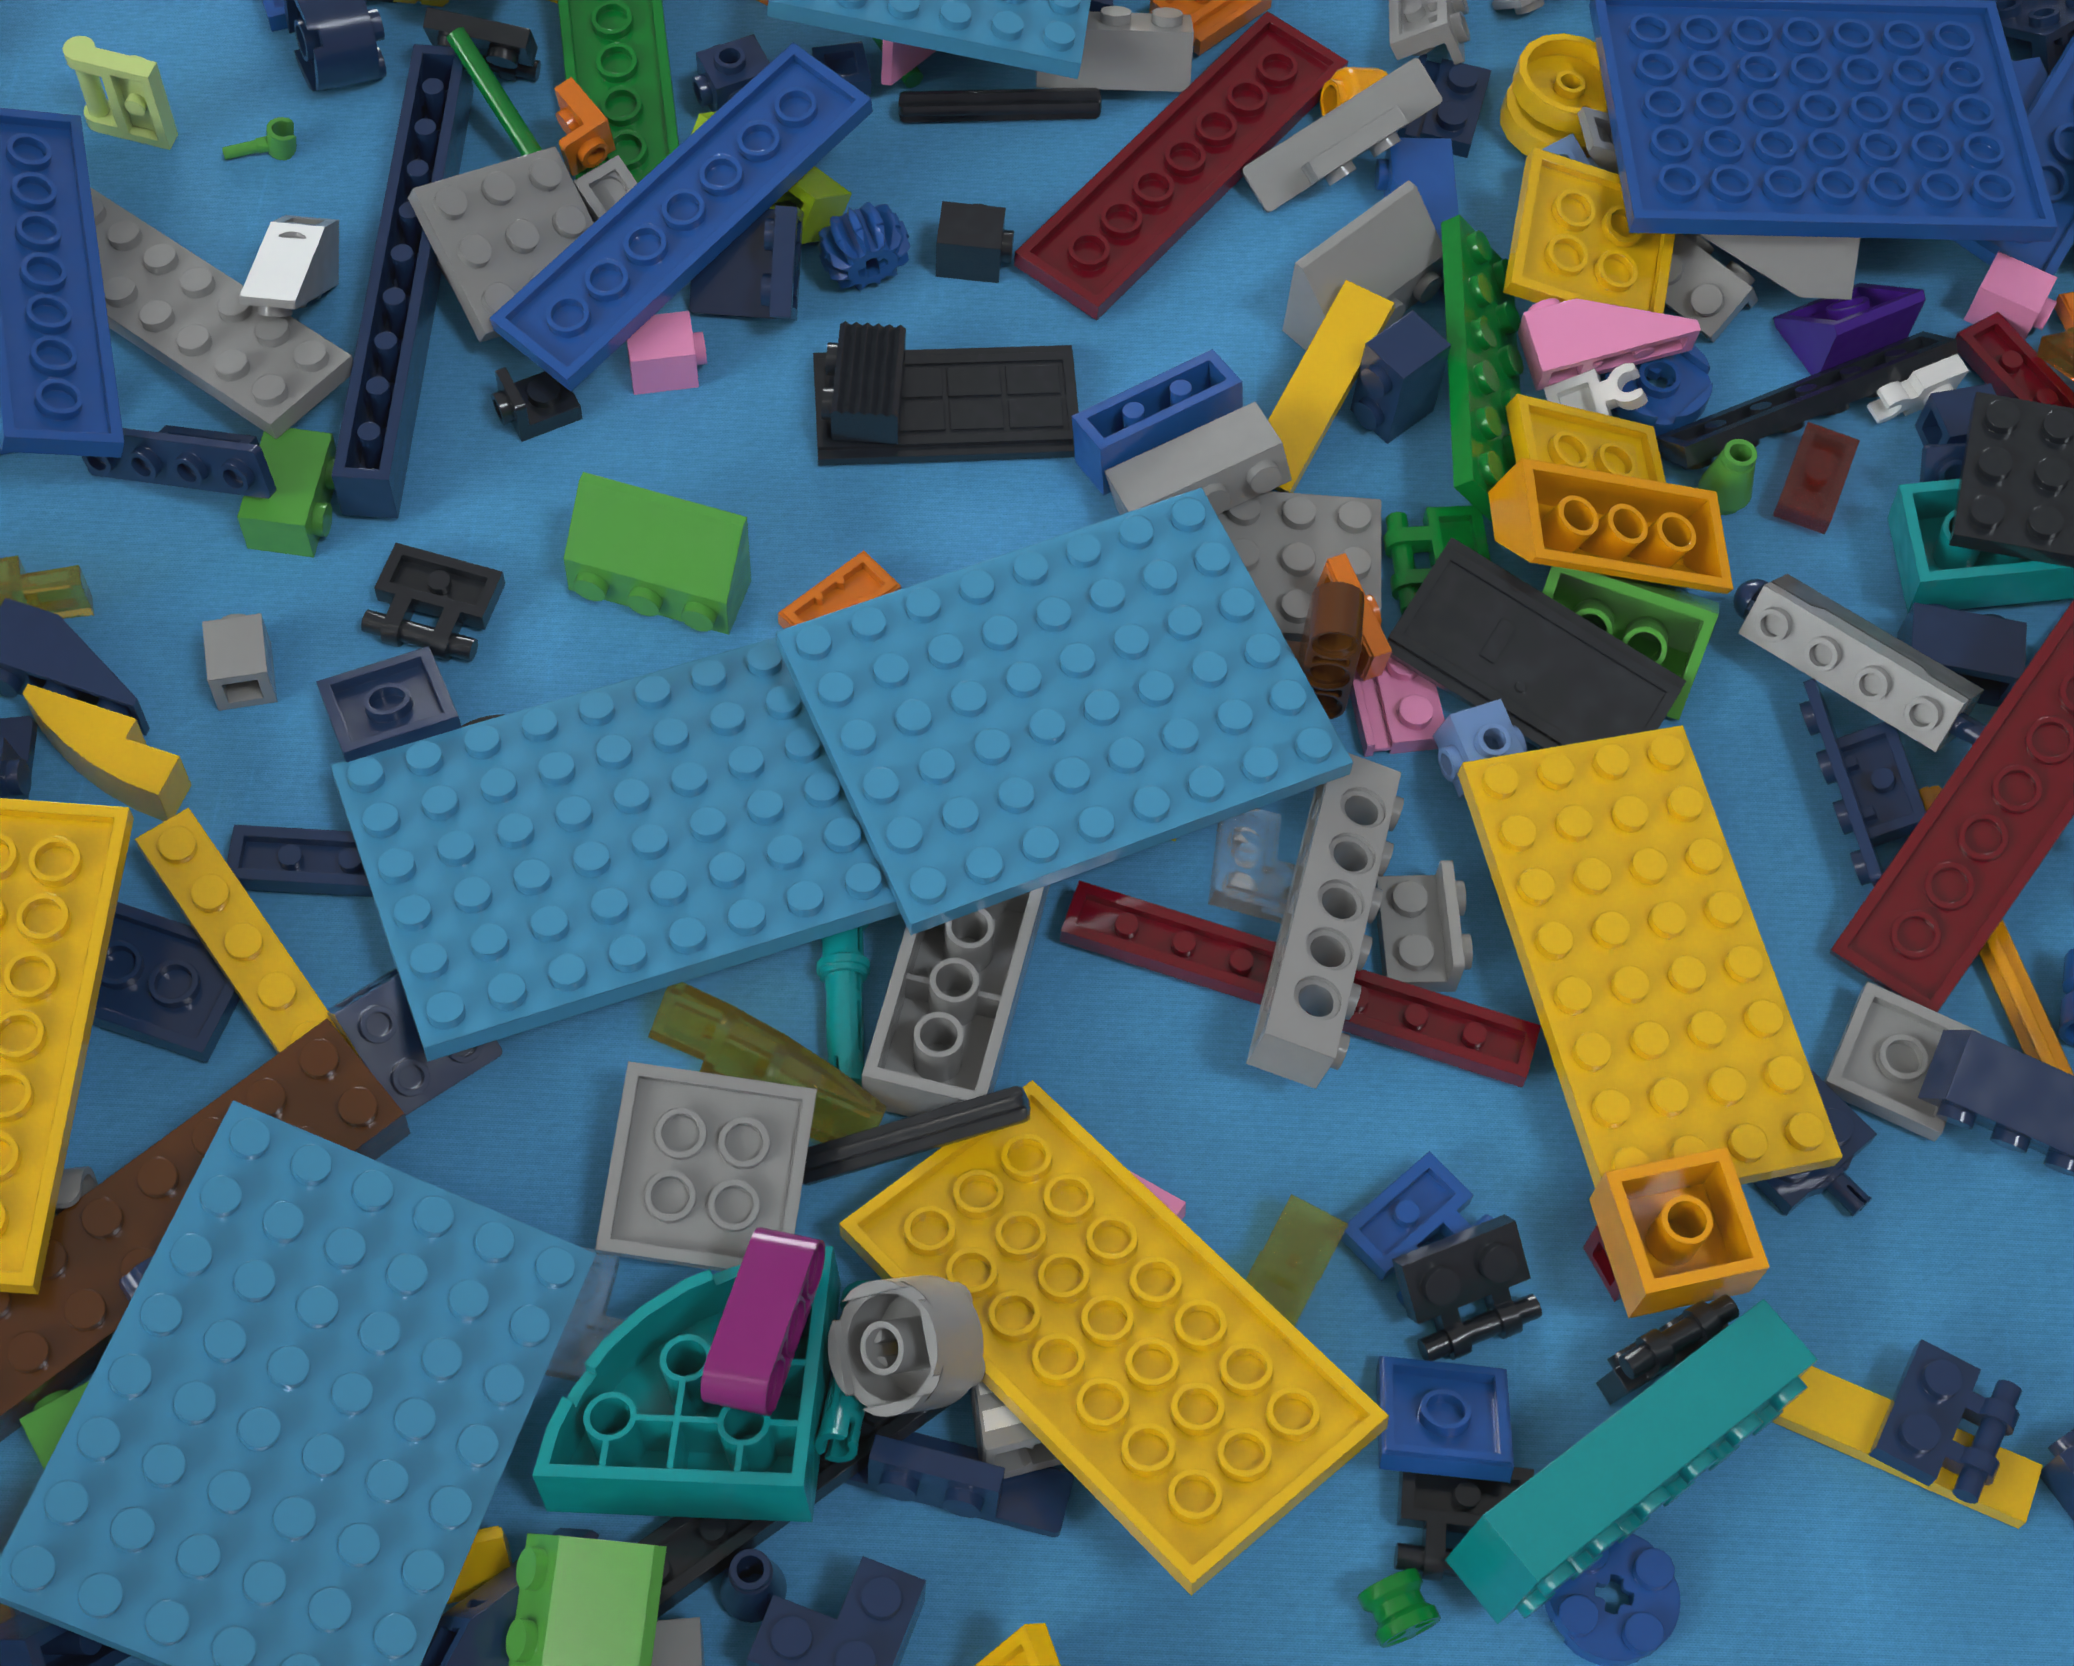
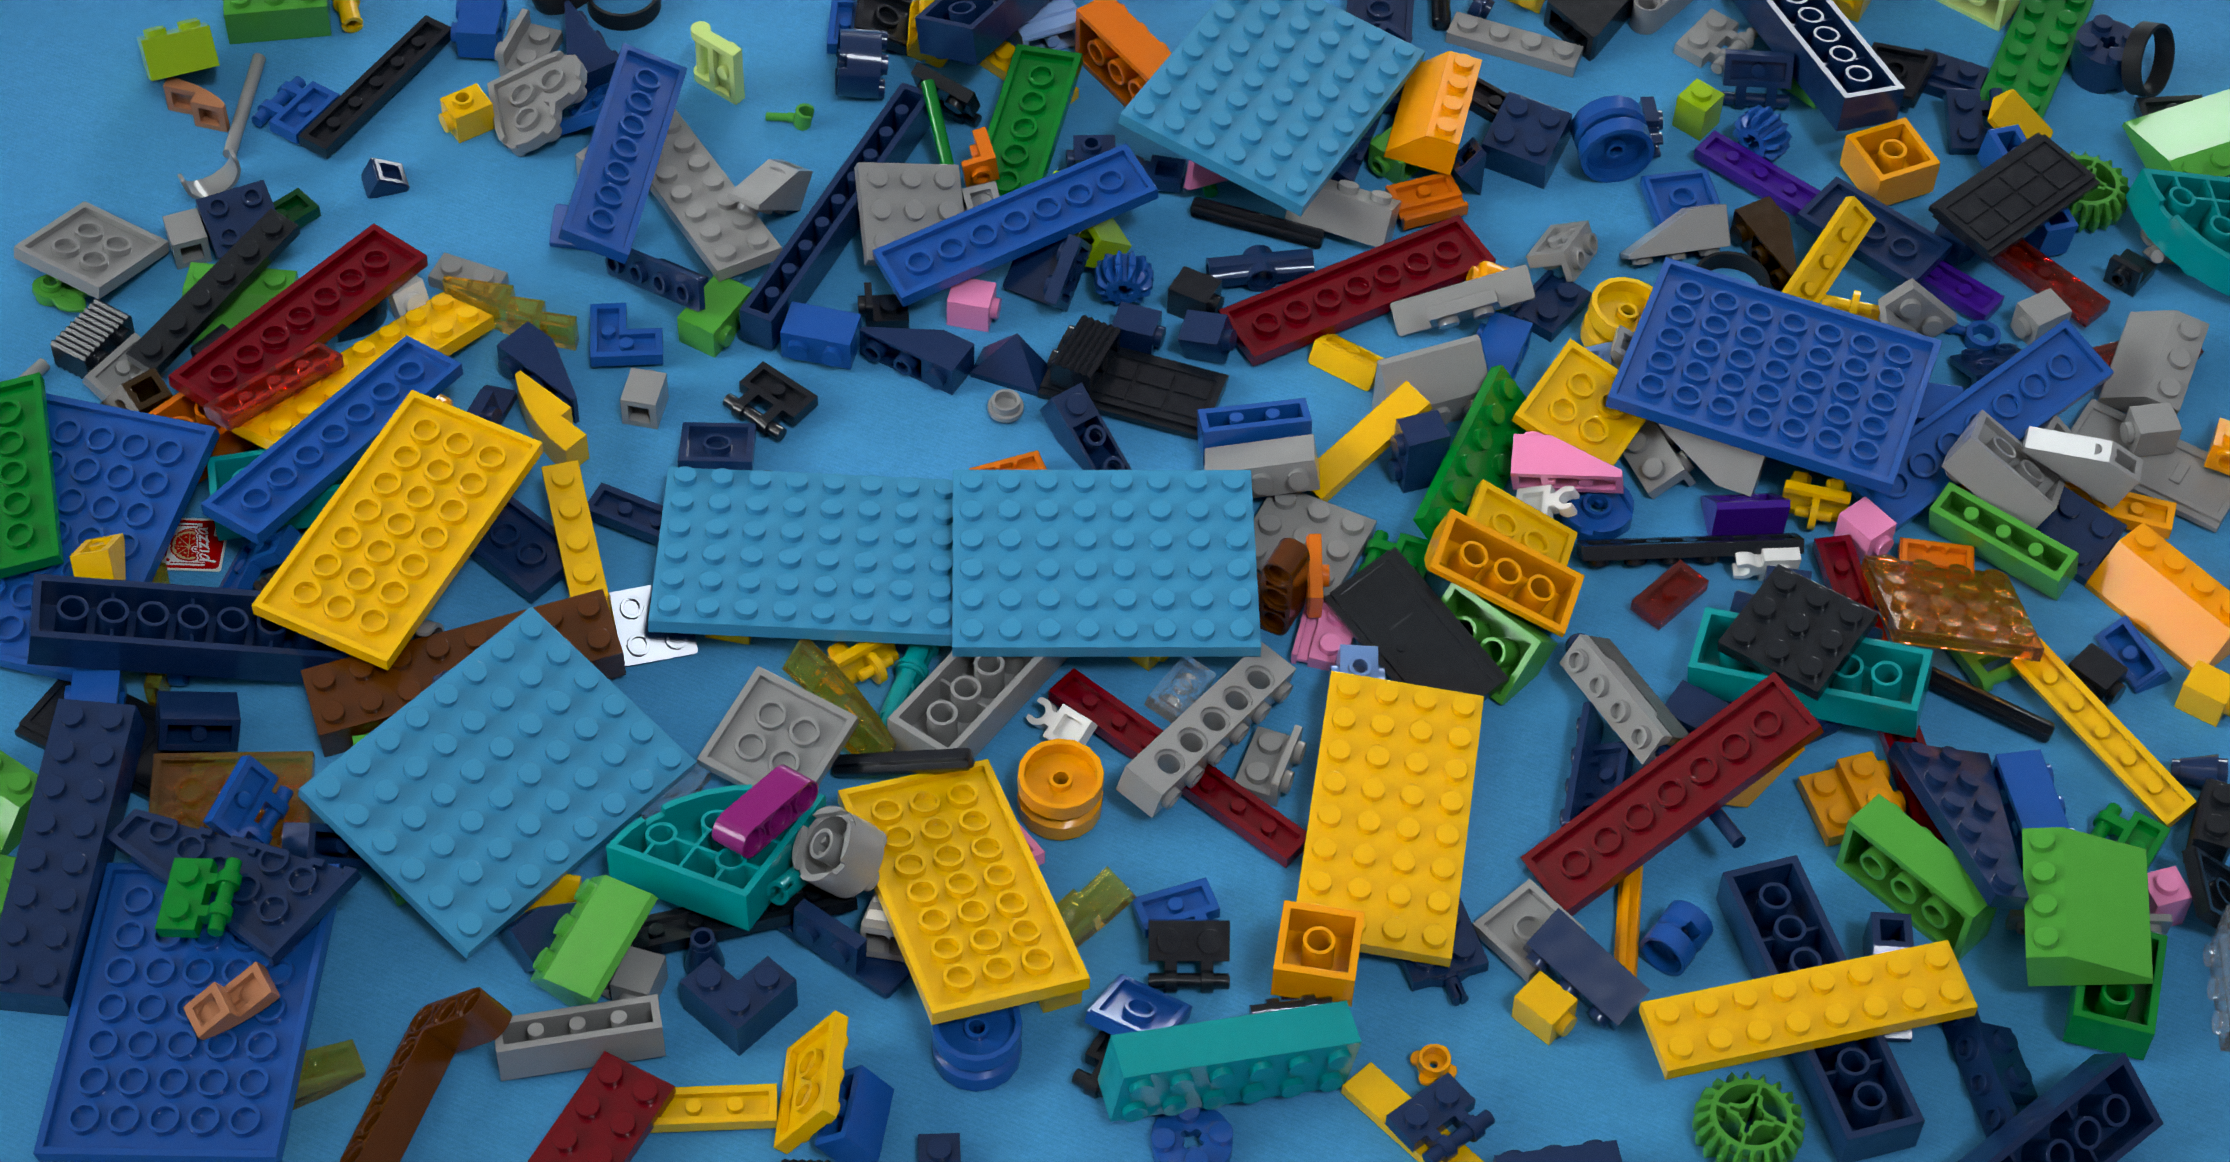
camera: 25 degrees right, 10 degrees down
(160, 588) = (615, 344): none -> blue plate
(465, 473) = (820, 335): none -> blue brick
(638, 448) = (924, 354): none -> dark blue slope
(657, 554) = (911, 412): bright green slope -> none
(760, 429) = (1011, 365): none -> dark blue slope
(766, 983) = (864, 660): none -> yellow hips
(782, 495) = (1005, 406): none -> light grey plate
(920, 505) = (1083, 431): none -> dark blue slope
(921, 310) = (1139, 327): none -> dark blue brick
(1021, 297) = (1207, 336): none -> dark blue brick
(1041, 169) = (1261, 267): none -> dark blue piece
(1112, 982) = (1063, 723): none -> white plate
(1159, 1089) = (1060, 789): none -> light orange wheel
(1220, 271) = (1345, 360): none -> yellow slope
(1250, 1598) = (979, 1049): none -> blue wheel
(1399, 1607) = (1061, 1098): green wheel -> none
(1732, 476) = (1608, 577): bright green cone -> none
(1887, 1311) = (1432, 1054): none -> light orange plate
(1942, 273) = (1816, 501): none -> yellow hips
(1989, 1178) = (1545, 1008): none -> yellow brick

